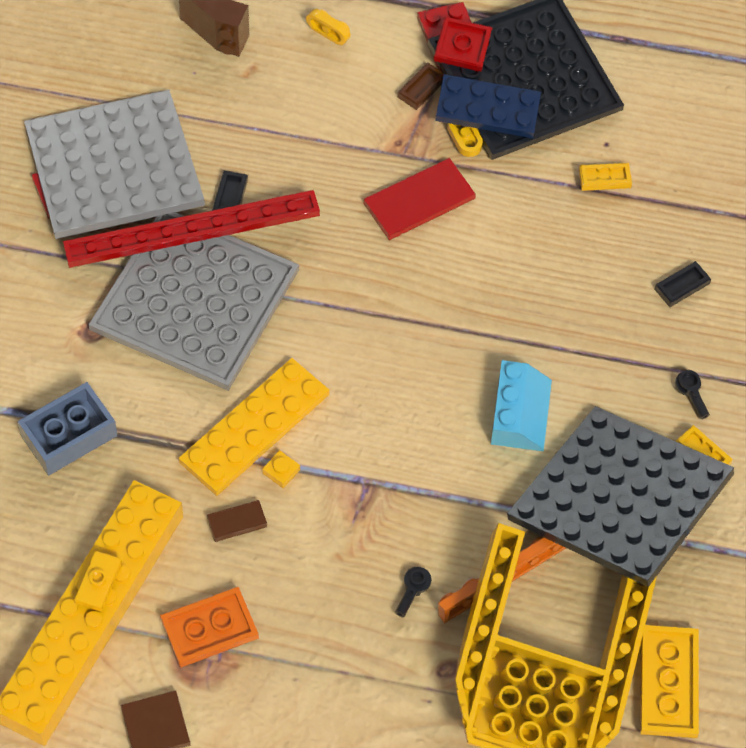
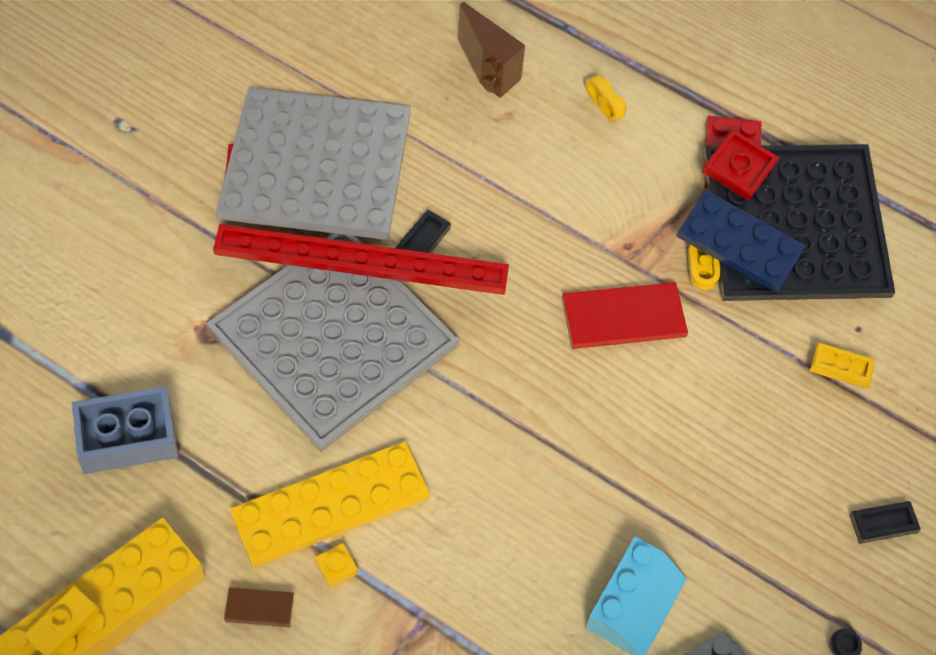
camera: 20 degrees right, 0 degrees up
(421, 86) = (678, 194): reddish brown tile -> none

